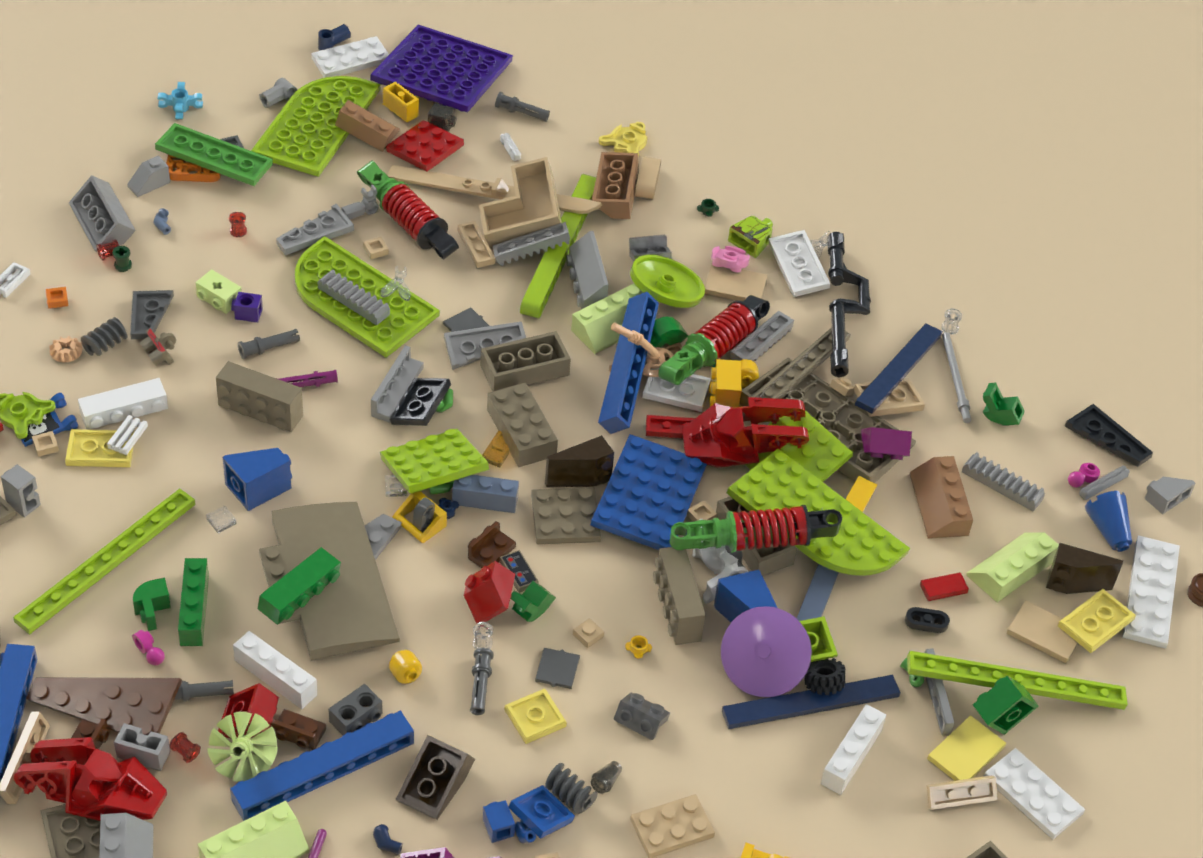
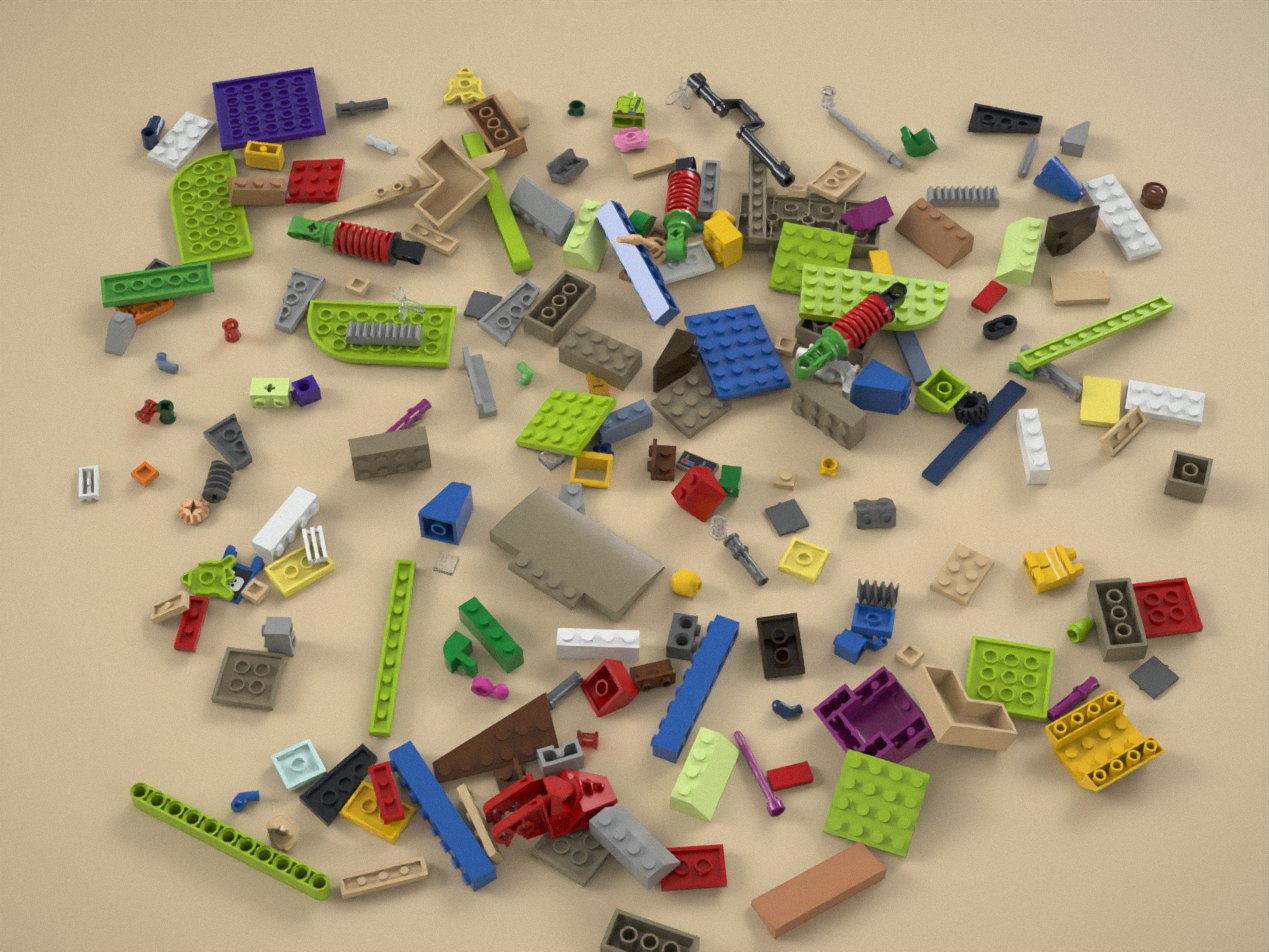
camera: 30 degrees left, 5 degrees up
(101, 213) = (111, 387): light grey slope -> none
(165, 342) = (274, 467): dark tan hips -> none
(180, 100) = (79, 255): medium azure pin -> none
(253, 757) = (636, 703): yellowish green piece -> none
(260, 345) = (345, 415): dark grey pin -> none
(282, 90) = (154, 201): light grey piece -> none
(299, 586) = (569, 571): green brick -> none
(367, 205) = (318, 255): light grey bar -> none
(420, 401) = (509, 384): black tile -> none
(423, 514) = (598, 465): dark grey beam -> none
(442, 116) = (307, 149): clear smoke brick -> none
(531, 242) = (478, 212): light grey gear -> none
(604, 779) = (891, 570): clear smoke cone -> none
(666, 426) = (709, 292): red plate -> none
(667, 281) = (604, 183): lime dish -> none
(723, 441) = (756, 277): red connector -> none
(766, 651) = (924, 414): medium lavender dish -> none
(799, 263) = (683, 114): white plate -> none
(898, 368) = (825, 154): dark blue tile -> none
(1005, 704) = (1105, 352): green brick -> none
(1087, 473) = (1011, 158): dark pink plate -> none
(1096, 620) = (1107, 259): light yellow tile -> none

